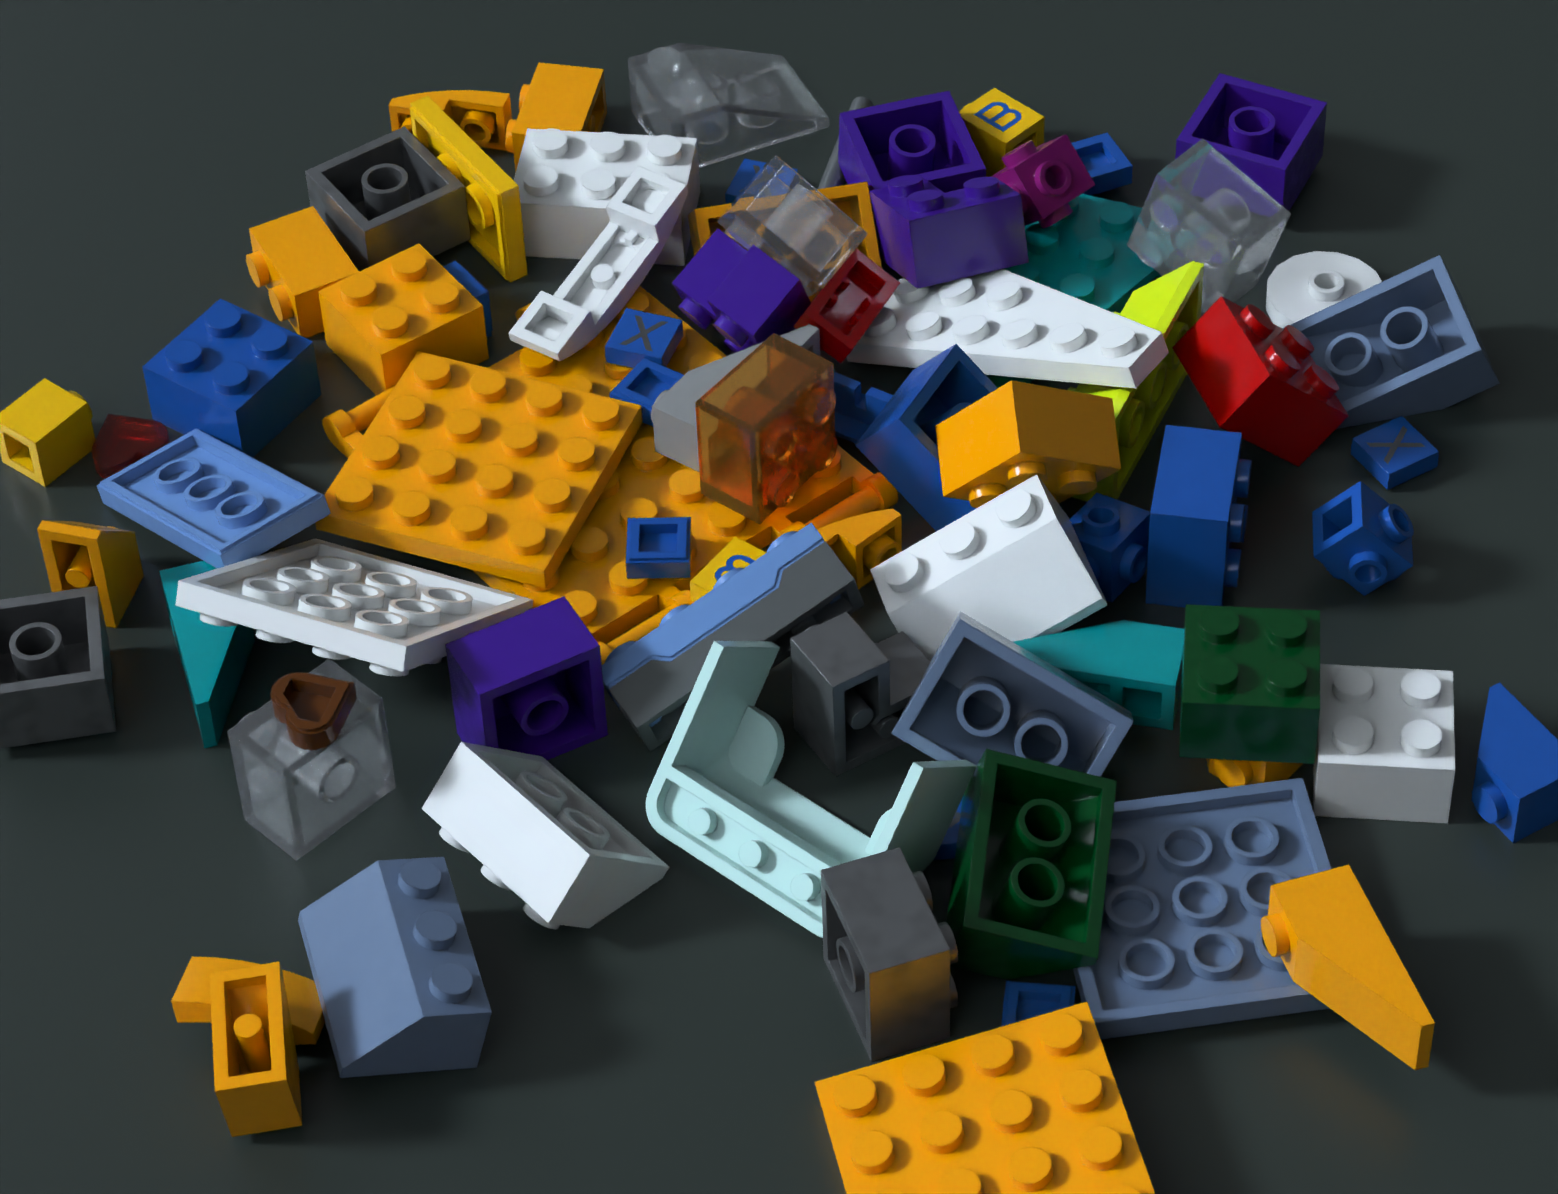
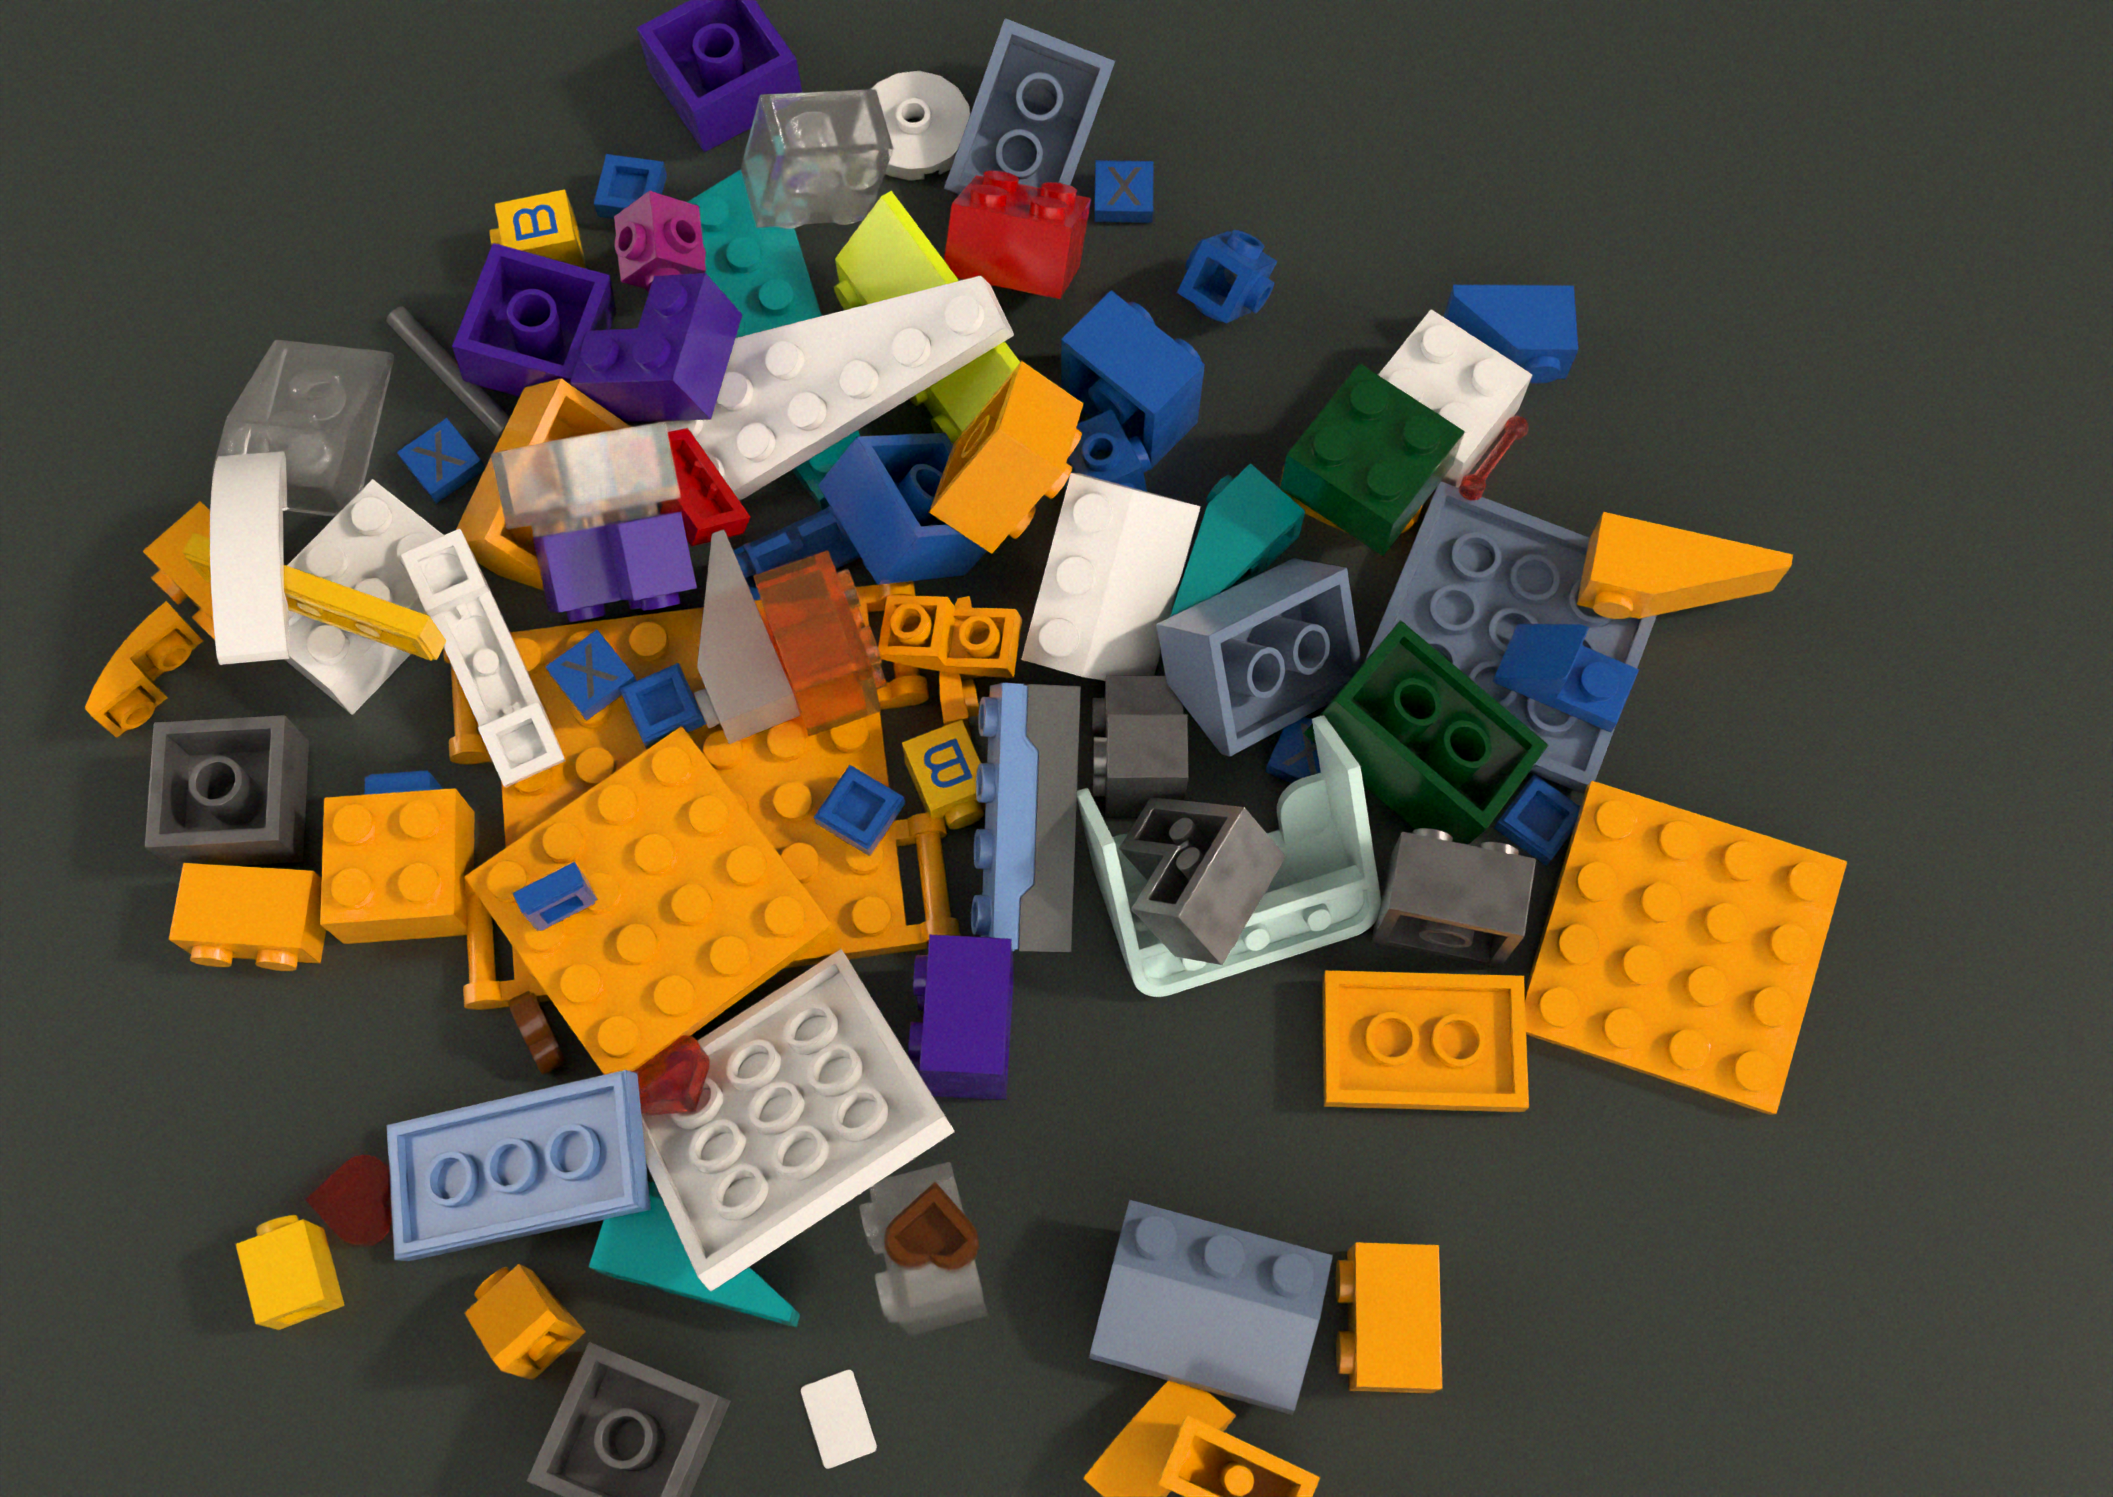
camera: 60 degrees left, 25 degrees up
(146, 808) = (838, 1419): none -> white sticker
(232, 378) = (355, 1061): blue brick -> none
(328, 456) = (536, 1032): none -> reddish brown tile
(345, 545) = (673, 1078): none -> clear red tile
(431, 385) = (555, 897): none -> blue tile
(475, 1110) = (1391, 1318): none -> light orange brick
(490, 192) = (319, 705): yellow tile -> none
(520, 90) = (248, 558): none -> white slope
(539, 836) = (1123, 1095): white slope -> none
(563, 142) = (343, 607): none -> yellow tile
(749, 1021) = (1424, 1041): none -> light orange plate
(754, 754) = (1202, 874): none -> flat silver brick
(847, 511) = (948, 638): none -> light orange slope
(1183, 948) = (1562, 673): none -> blue slope
(1316, 800) = (1474, 484): none -> clear red hinge

